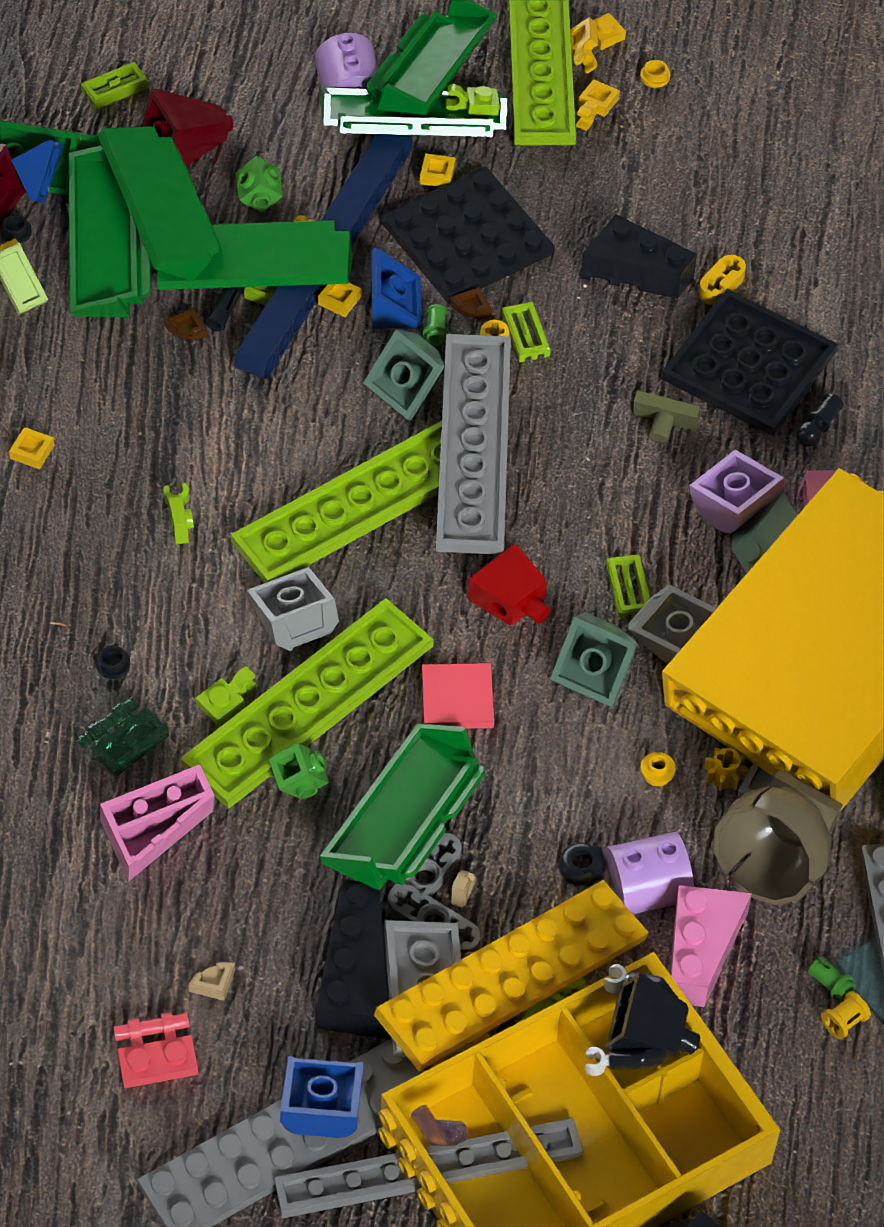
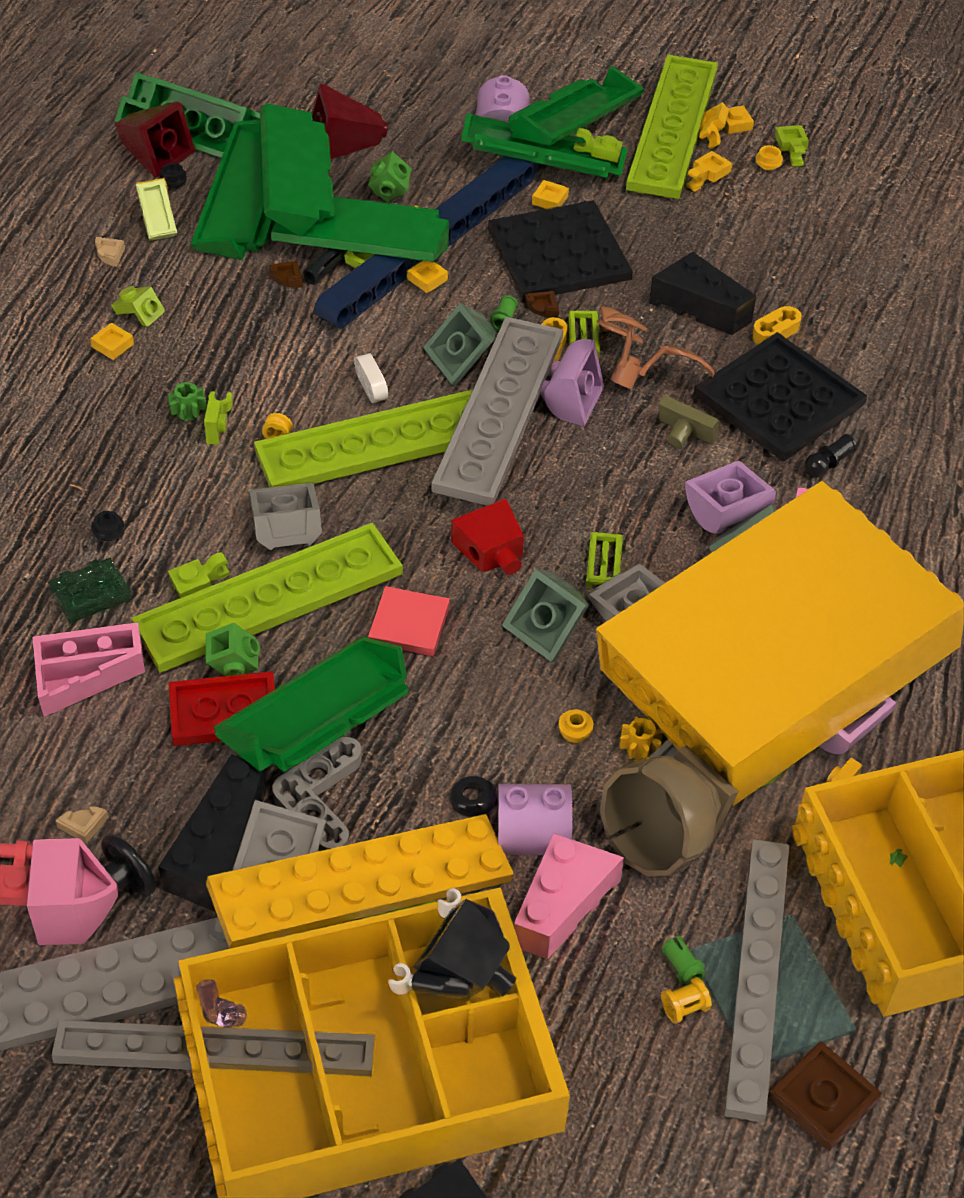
camera: 15 degrees right, 5 degrees down
(38, 168) = (206, 130): blue slope -> none
(44, 395) = (141, 302): none -> lime bracket
(117, 88) = (298, 87): lime tile -> none
(141, 502) = (187, 401): none -> bright green gear
(246, 511) = (276, 425): none -> yellow bush
(246, 1047) = (73, 890): none -> bright pink piece
(299, 831) = (205, 702): none -> red plate
(321, 1097) = (128, 952): blue slope -> none
(324, 432) = (371, 378): none -> white beam
(394, 293) = (474, 279): blue slope -> none
(462, 888) = (348, 790): tan tile -> none
(539, 394) = (574, 383): none -> lavender brick
(588, 362) = (628, 365): none -> nougat plant
(676, 47) = (794, 141): none -> lime plate

